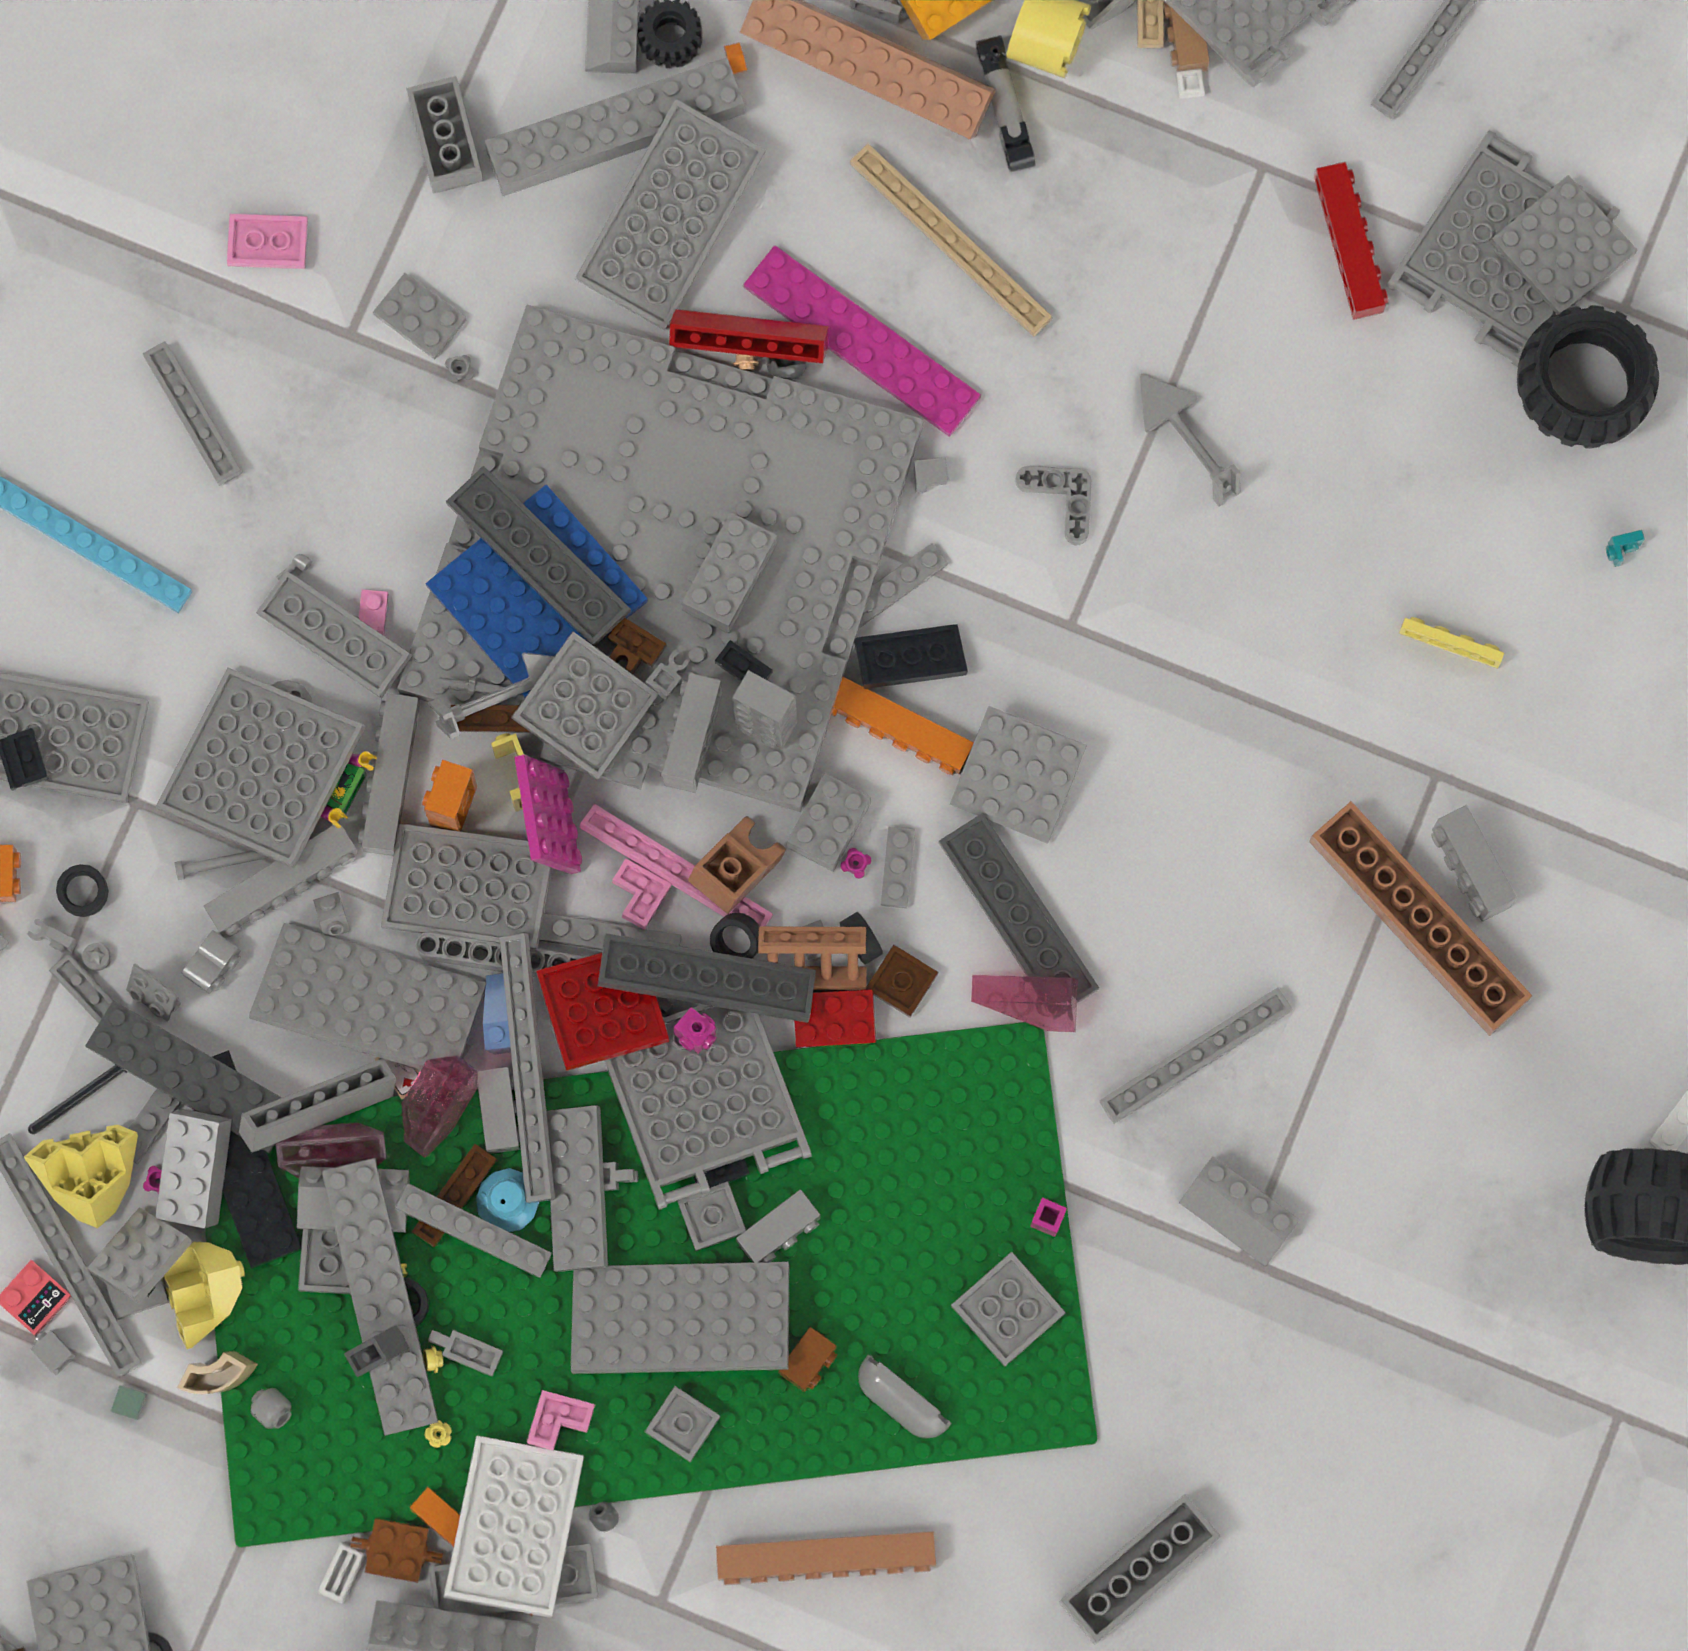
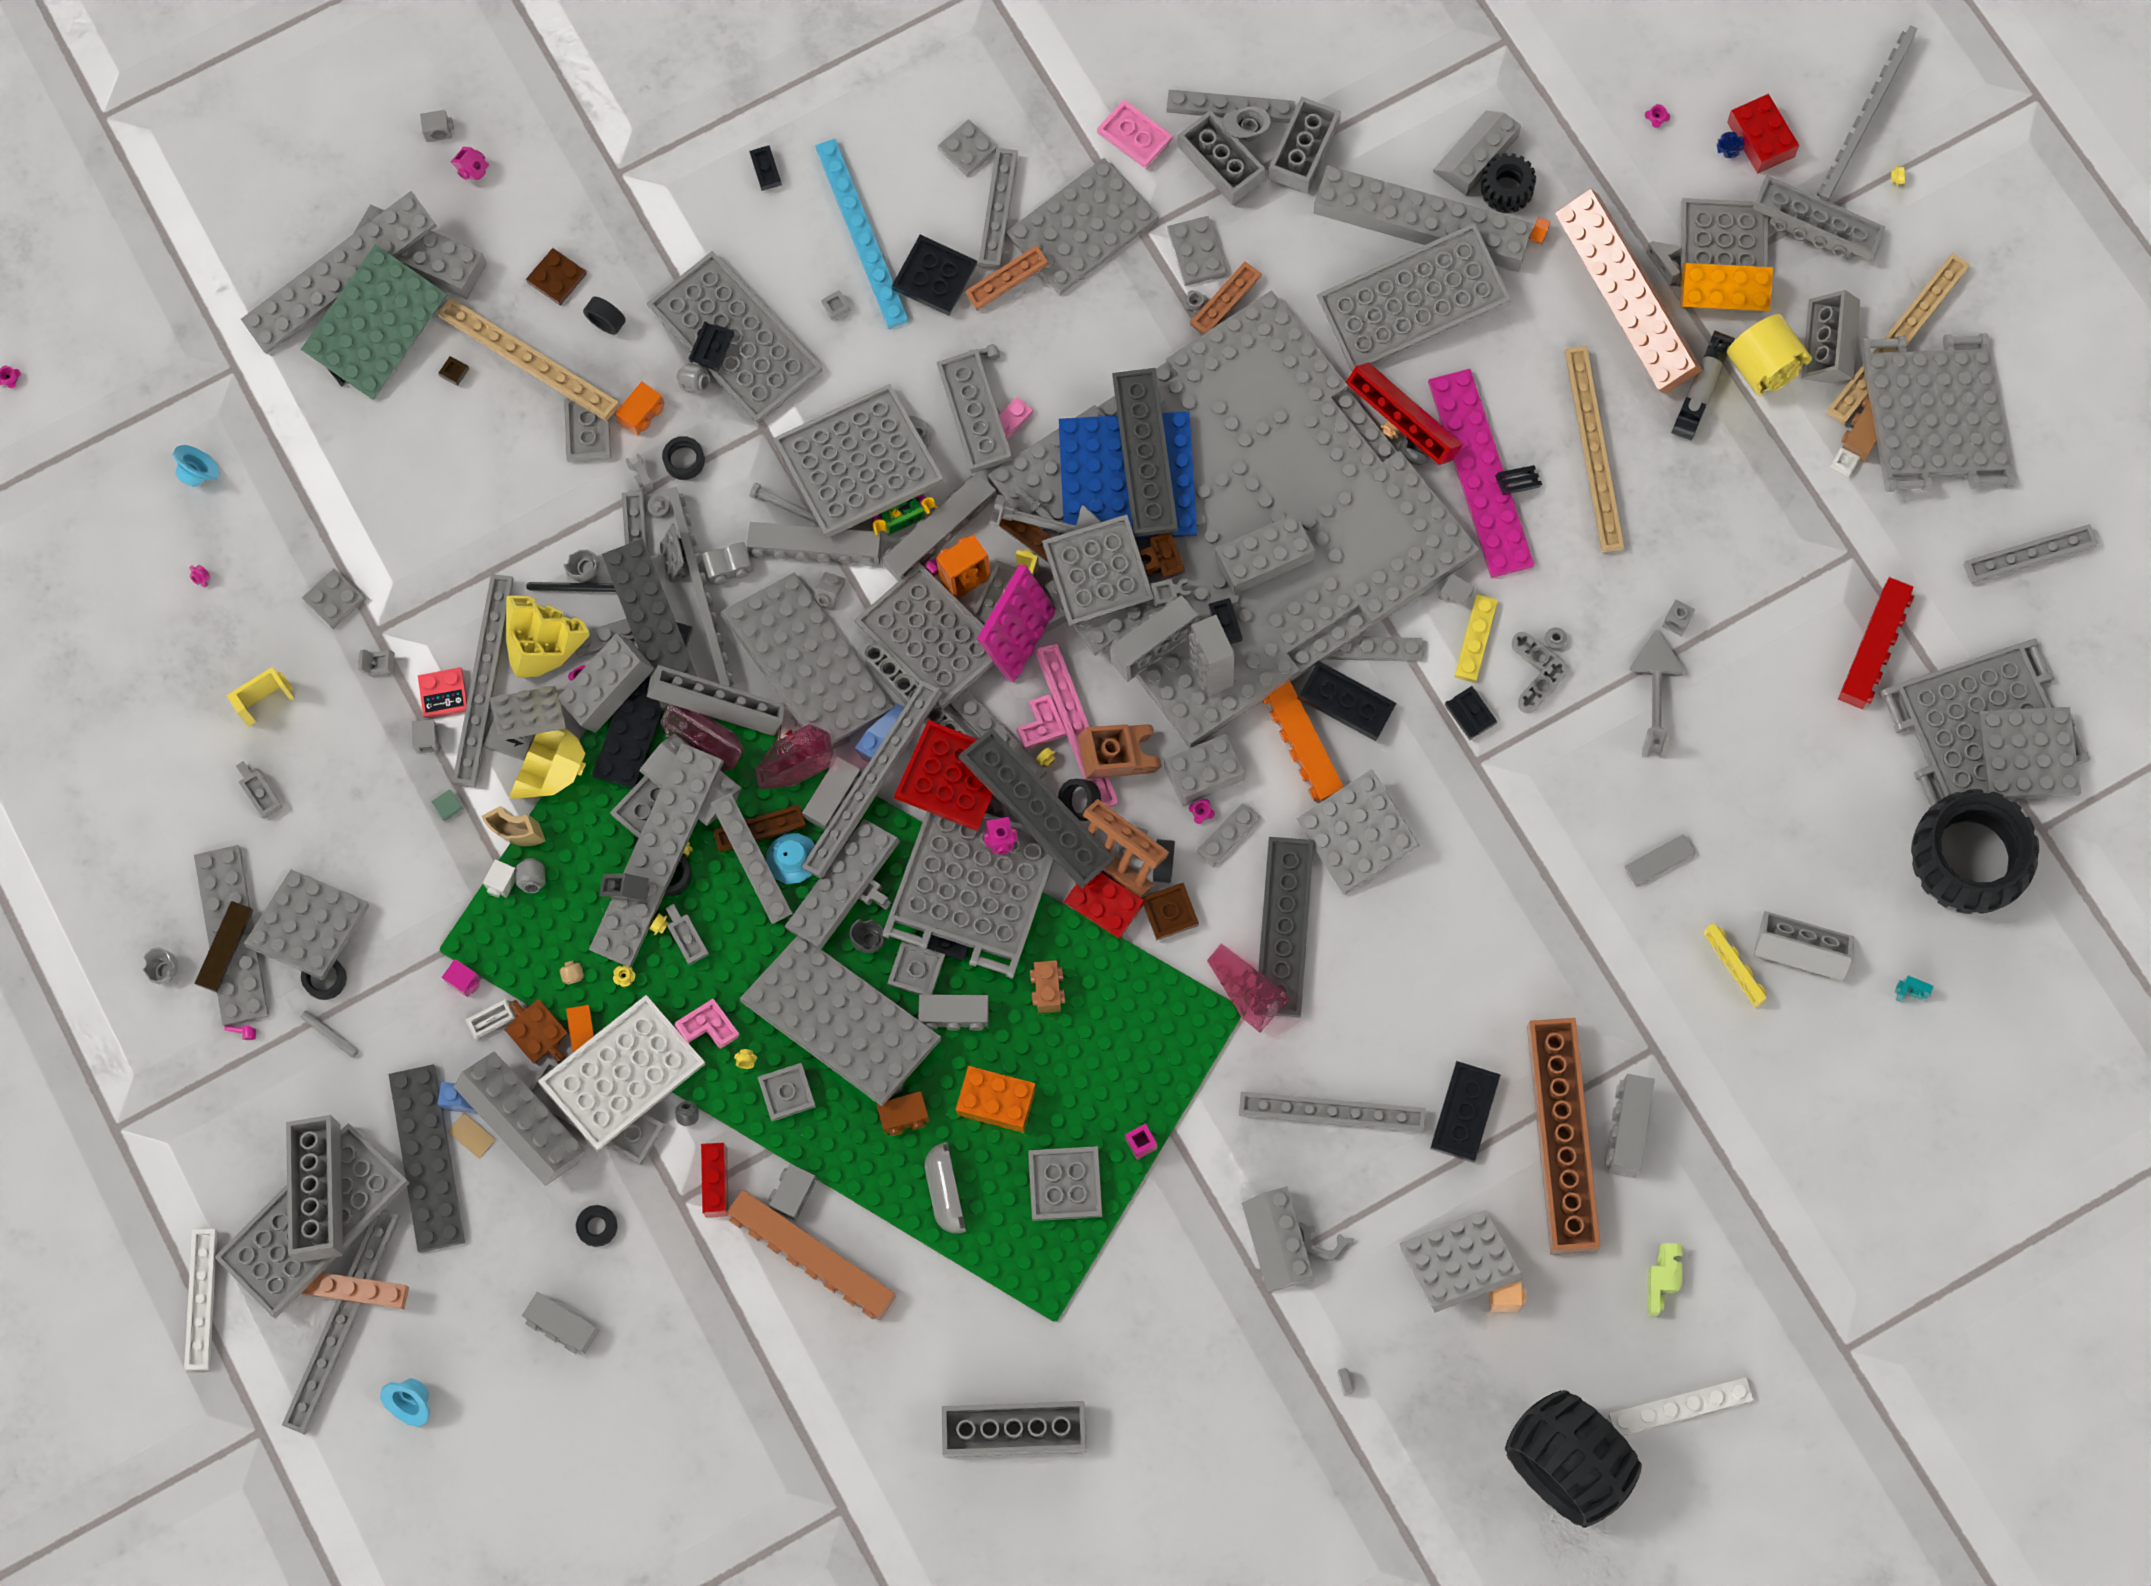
camera: 45 degrees right, 5 degrees down
(27, 804) = (693, 378): none -> light grey head
(70, 1070) = (582, 565): none -> light grey hair
(109, 627) = (835, 305): none -> light grey plate
(111, 373) = (967, 147): none -> light grey plate
(184, 526) = (934, 275): none -> black plate
(215, 1013) = (699, 580): none -> light grey plate
(244, 1434) = (500, 879): none -> white brick
(258, 477) = (1007, 277): none -> nougat plate
(283, 1556) = (461, 978): none -> dark pink brick
(288, 371) = (1083, 225): none -> light grey plate
(338, 145) = (1200, 103): none -> light grey plate
(371, 152) = (1247, 122): none -> light grey piece
(373, 205) = (1221, 157): none -> light grey brick
(384, 1469) = (571, 973): none -> tan piece
(412, 817) = (932, 567): none -> dark pink hand
(487, 344) = (1226, 298): none -> nougat plate
(494, 799) = (993, 590): none -> light grey plate
(618, 1423) = (745, 1059): none -> light yellow plate
(641, 1220) = (867, 936): none -> dark grey hair
(670, 921) = (1046, 757): none -> light yellow plate
(680, 1557) = (714, 1179): none -> red brick
(761, 1511) = (792, 1192): none -> light grey brick
(847, 1138) = (1047, 994): none -> nougat brick
(884, 1280) = (996, 1099): none -> orange brick
(914, 309) = (1516, 472): none -> black tile
(981, 506) = (1476, 638): none -> light yellow plate
(1032, 582) = (1470, 713): none -> black plate
(1055, 459) = (1553, 644): none -> light grey plate
(1154, 348) = (1678, 617): none -> light grey brick
(1284, 1193) = (1319, 1252): none -> light grey helmet
(1309, 593) = (1659, 860): none -> light grey tile
(1315, 963) = (1465, 1111): none -> black plate
(1399, 1293) = (1345, 1381): none -> light grey tile
(1419, 1104) = (1460, 1261): none -> light grey plate
(1483, 1105) = (1507, 1298): none -> light nougat brick
(1499, 577) = (1804, 946): none -> light grey slope
(1606, 980) = (1666, 1277): none -> yellowish green plate

